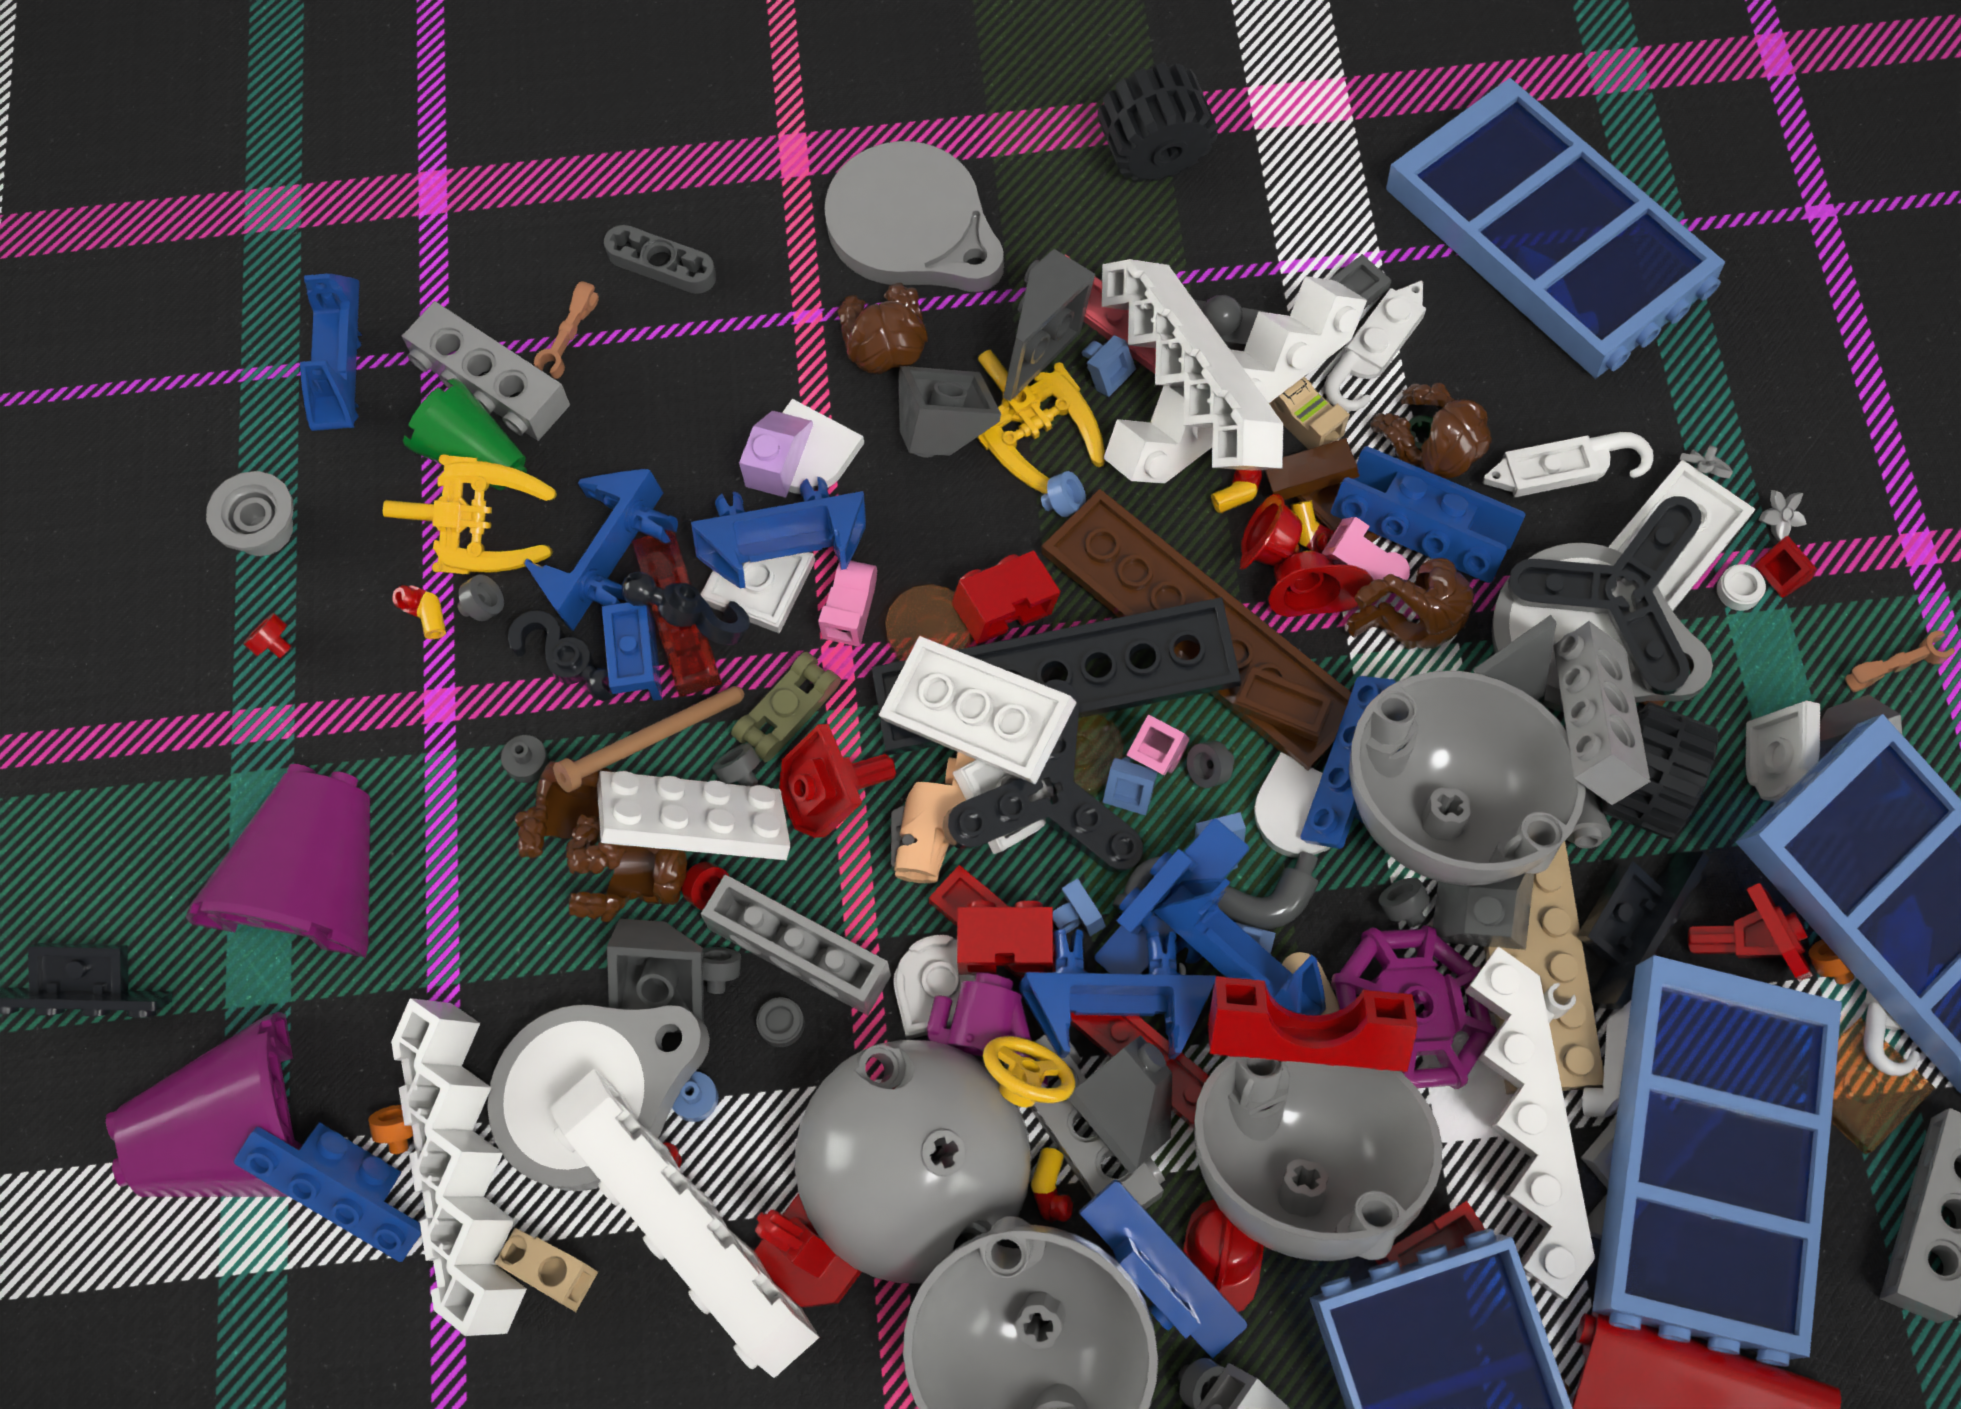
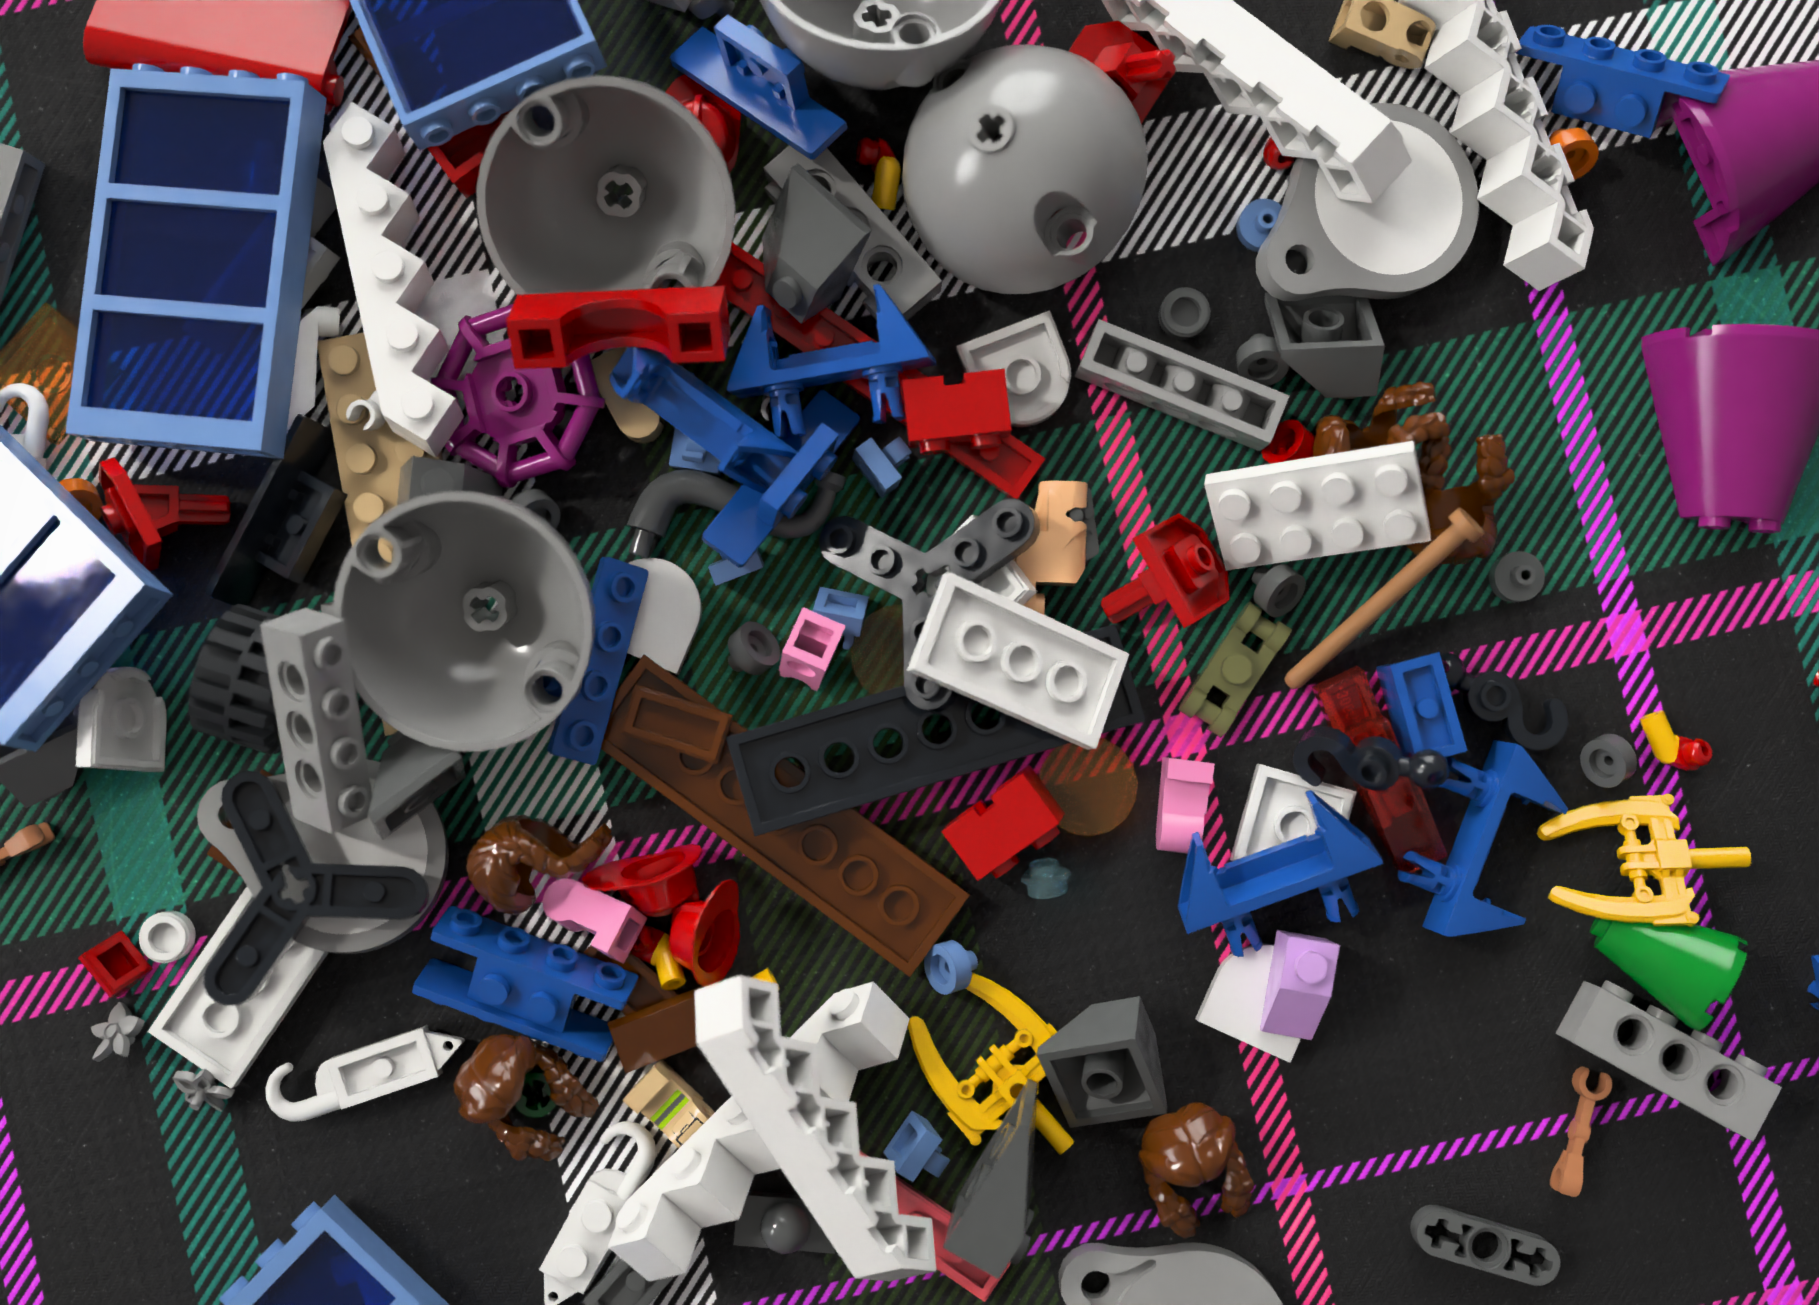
camera: 165 degrees right, 20 degrees up
(974, 553) = (1046, 878): none -> clear light blue plate
(982, 1013) = (963, 315): magenta piece -> none
(1024, 1076) = (919, 239): yellow piece -> none

